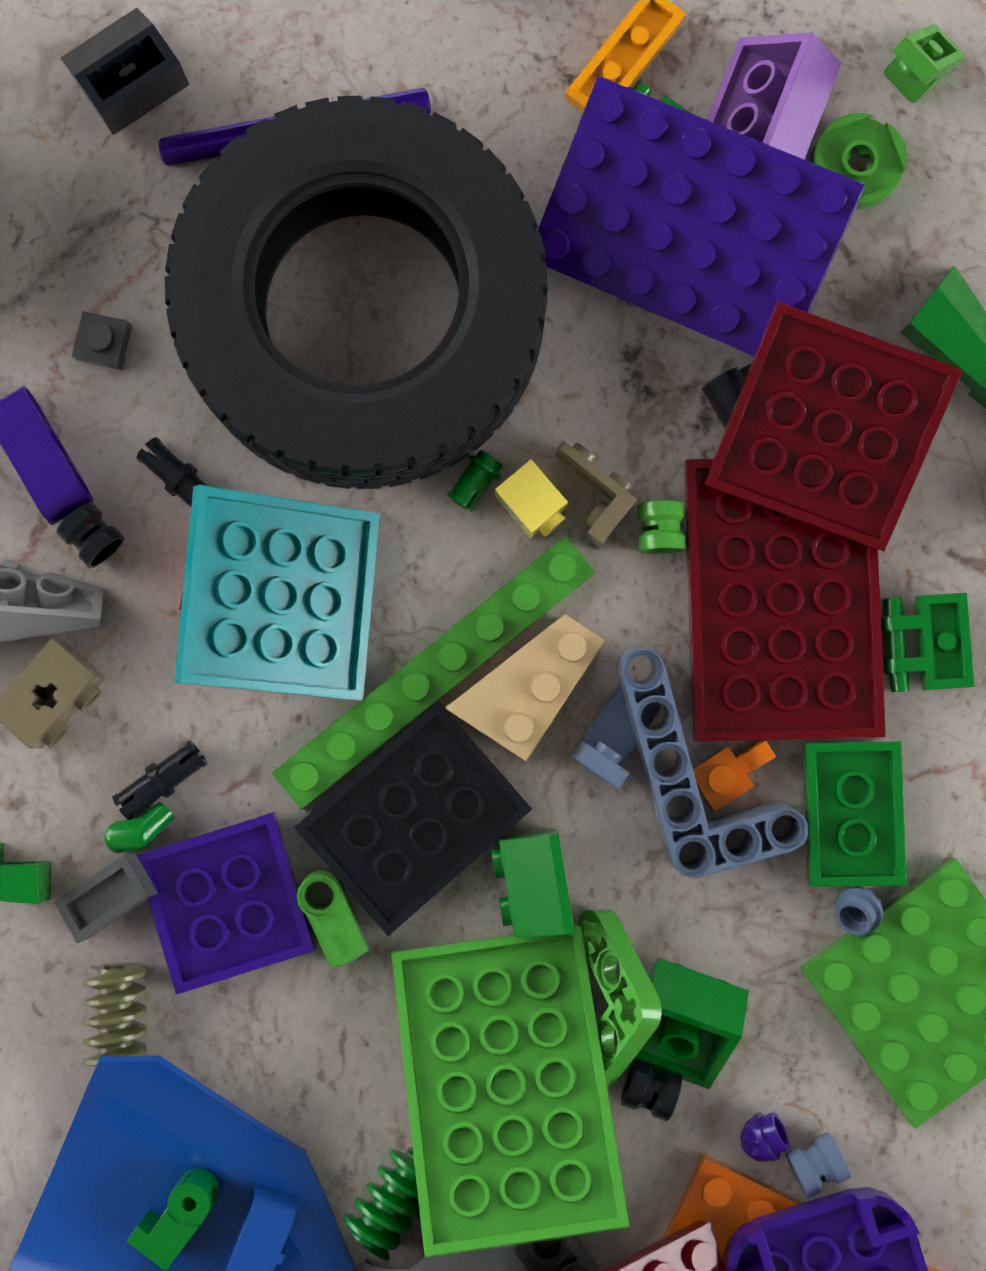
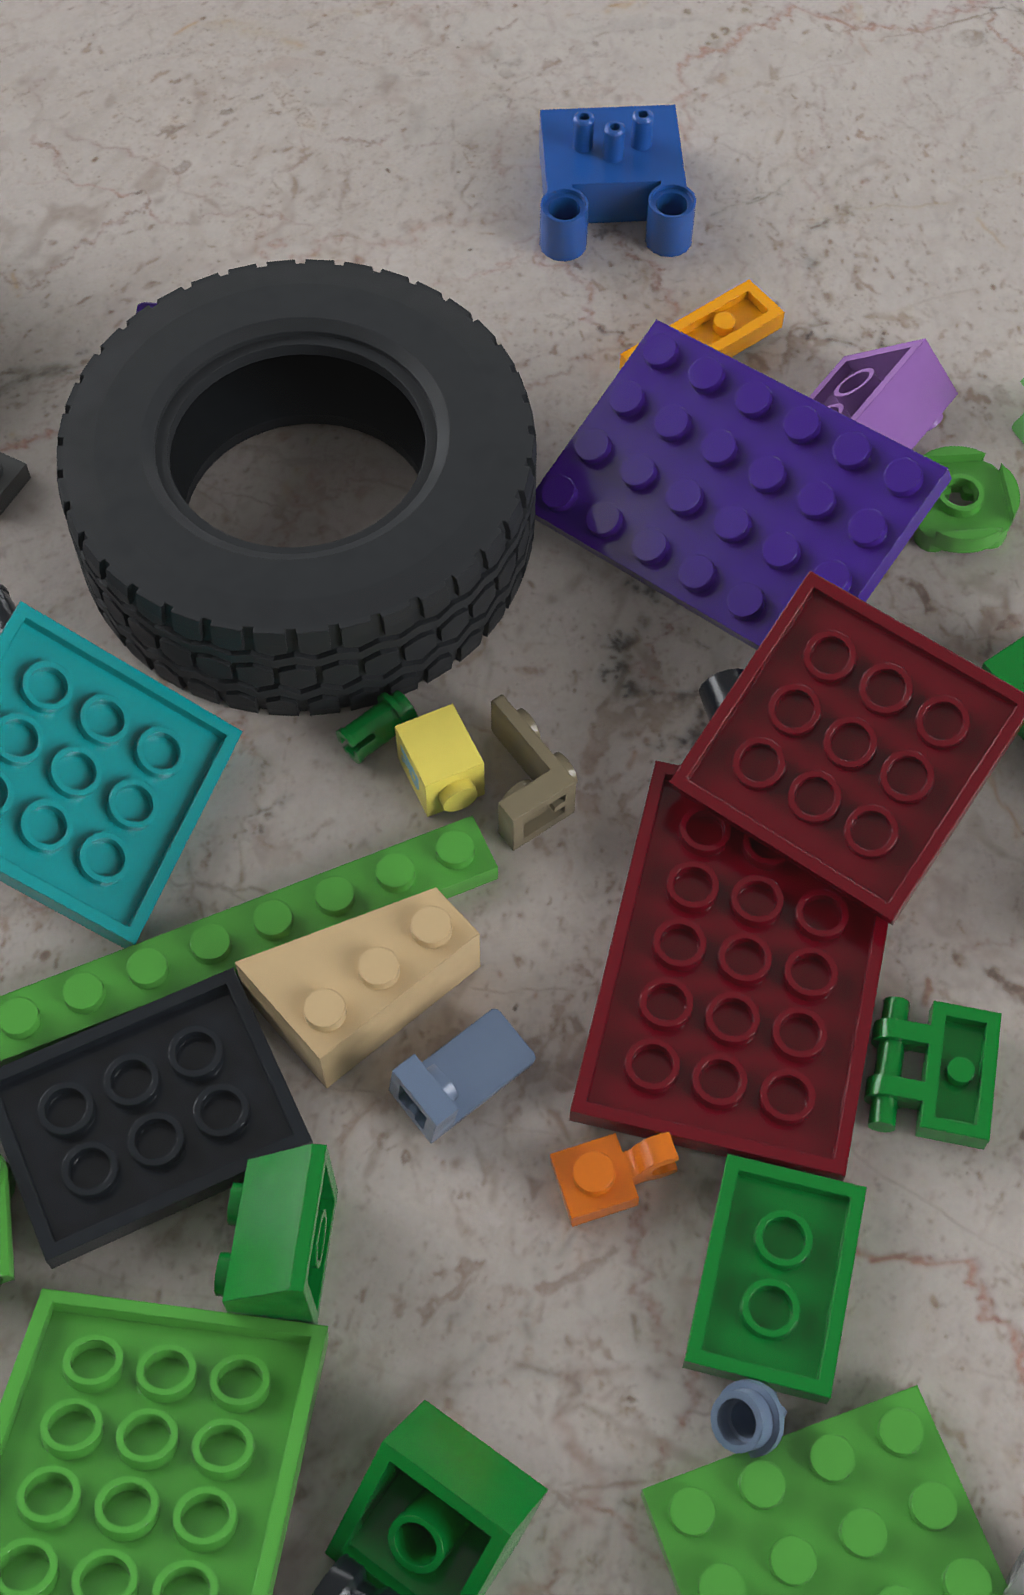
camera: 20 degrees right, 25 degrees down
(126, 70) = (132, 237): black slope -> none
(632, 999) = (357, 1442): bright green beam -> none
(661, 526) = (600, 834): bright green wheel -> none
(682, 781) = (531, 1156): sand blue beam -> none

